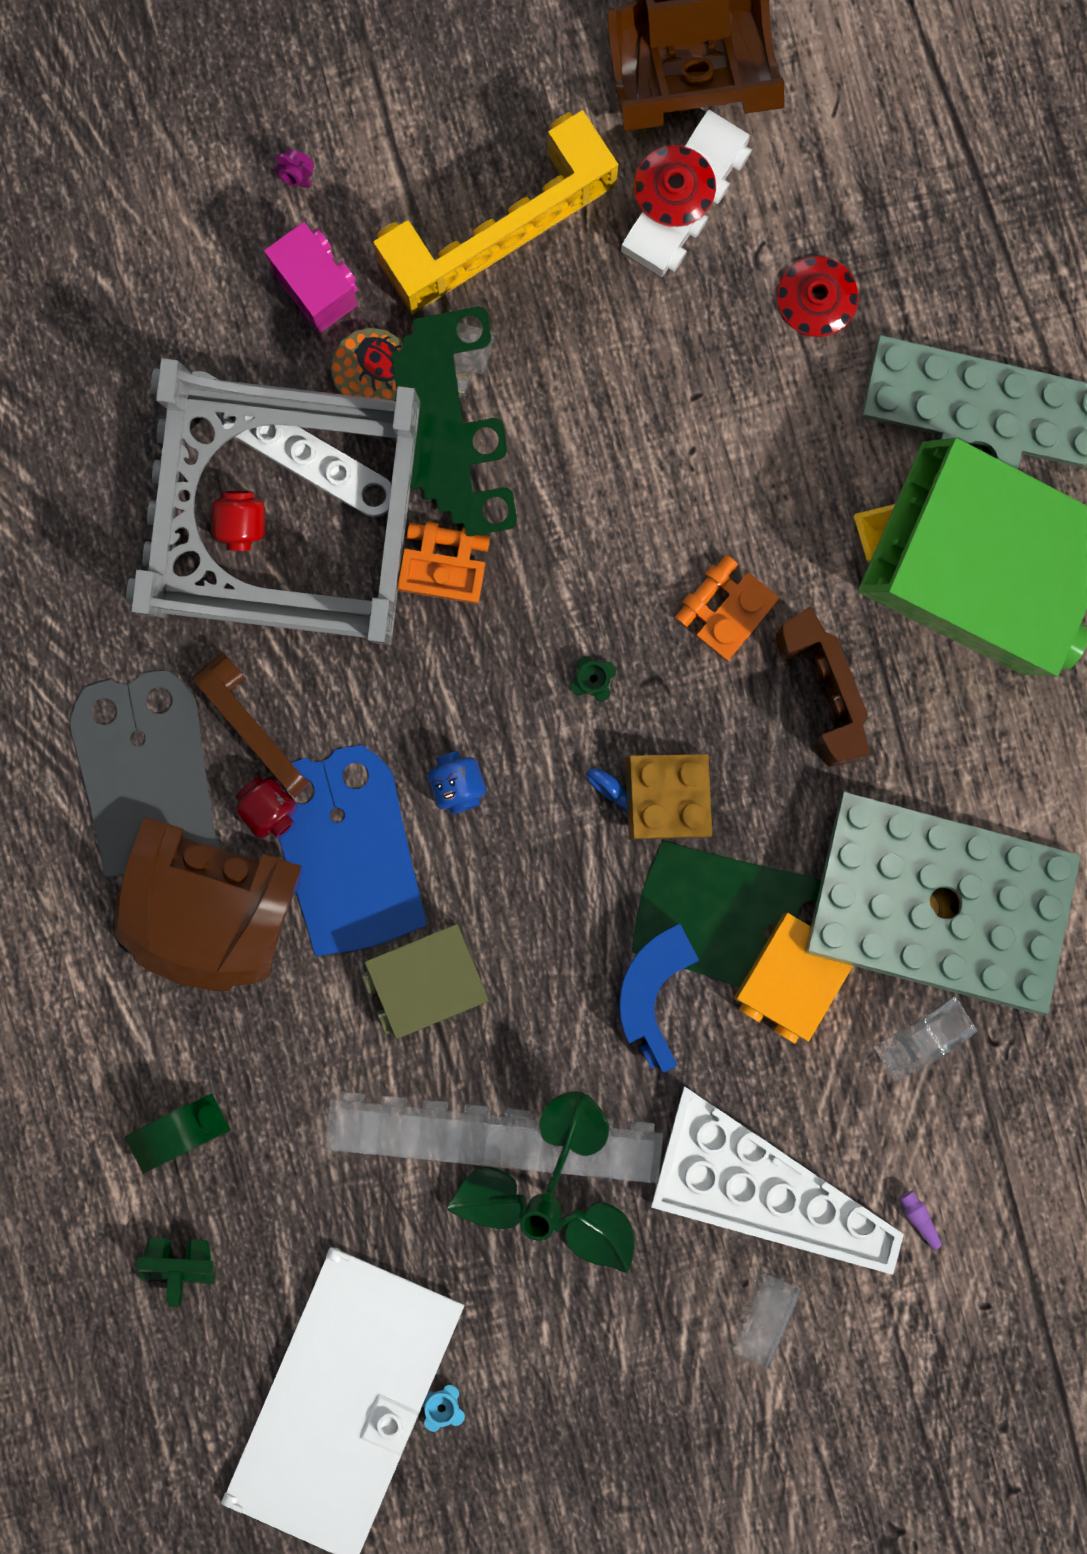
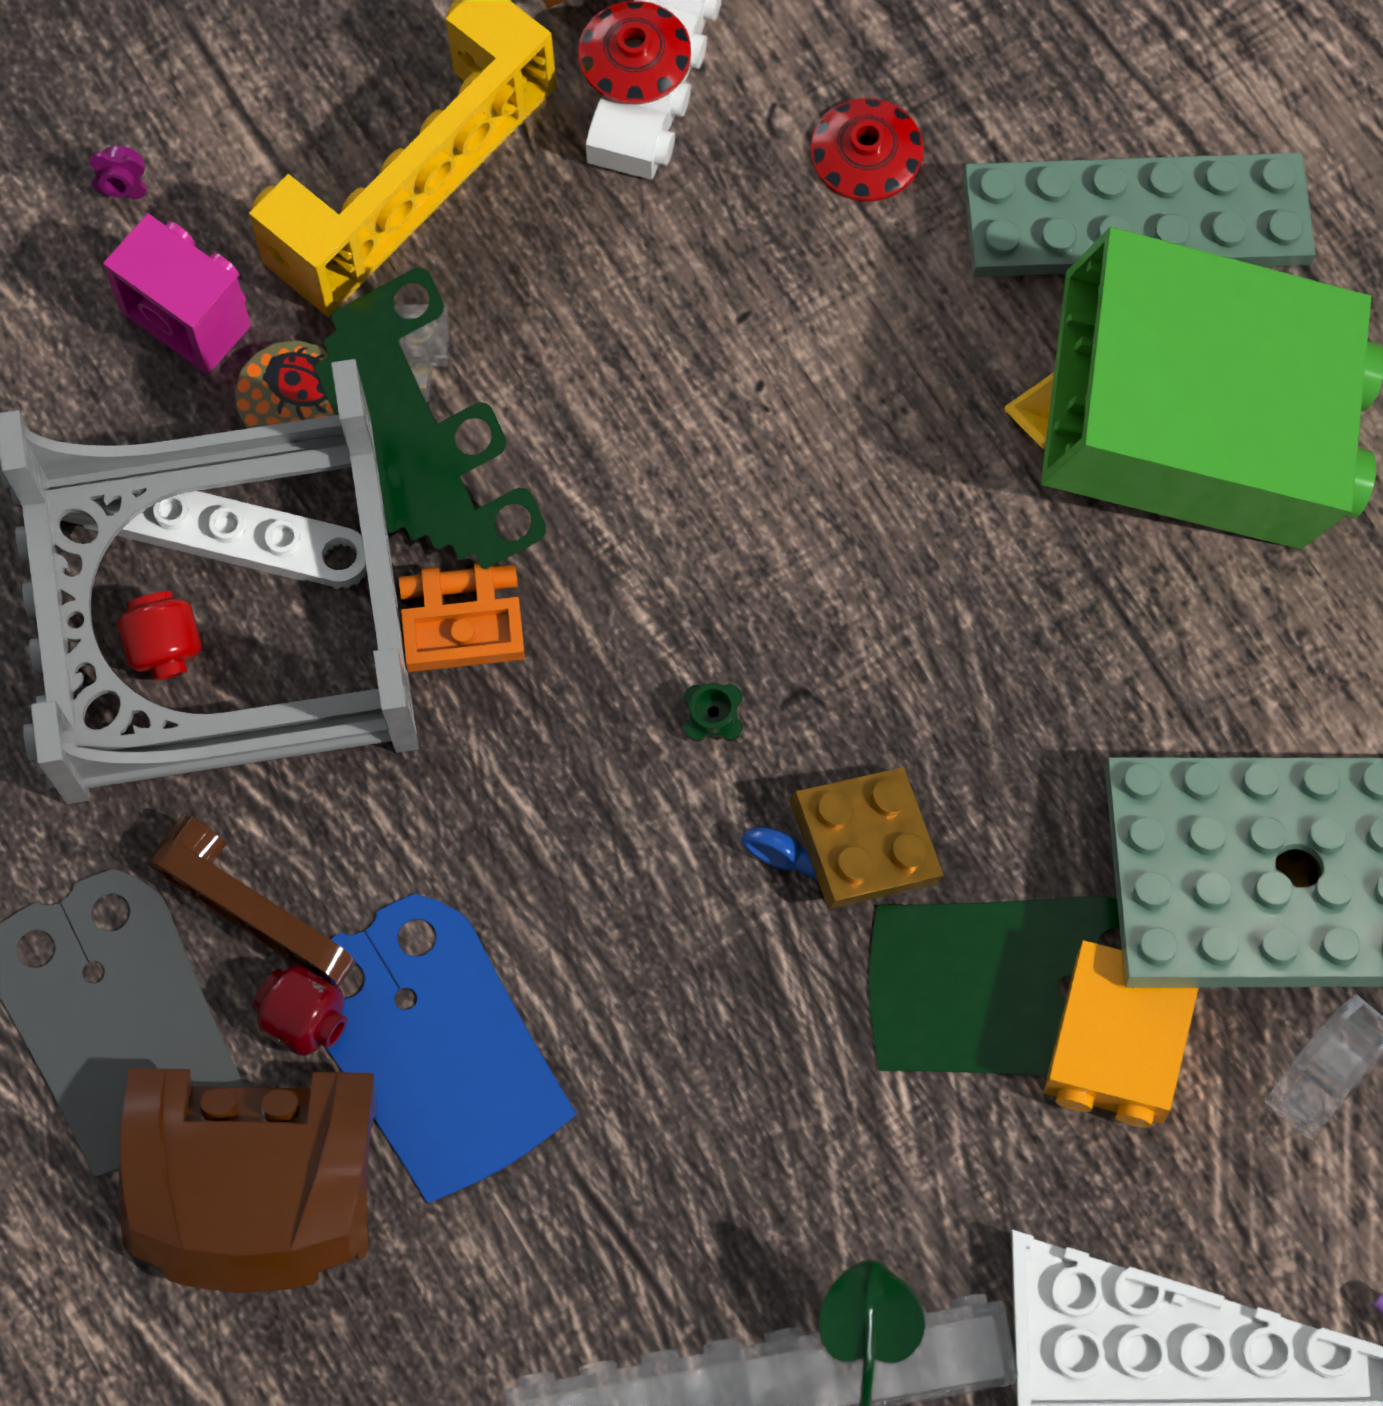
camera: 10 degrees left, 15 degrees down
(424, 982) = (596, 1189): olive brick -> none
(456, 783) = (563, 901): blue head -> none
(643, 978) = (917, 1069): blue arch -> none
(738, 614) = (887, 576): orange plate -> none
(806, 634) = (993, 565): reddish brown plate -> none

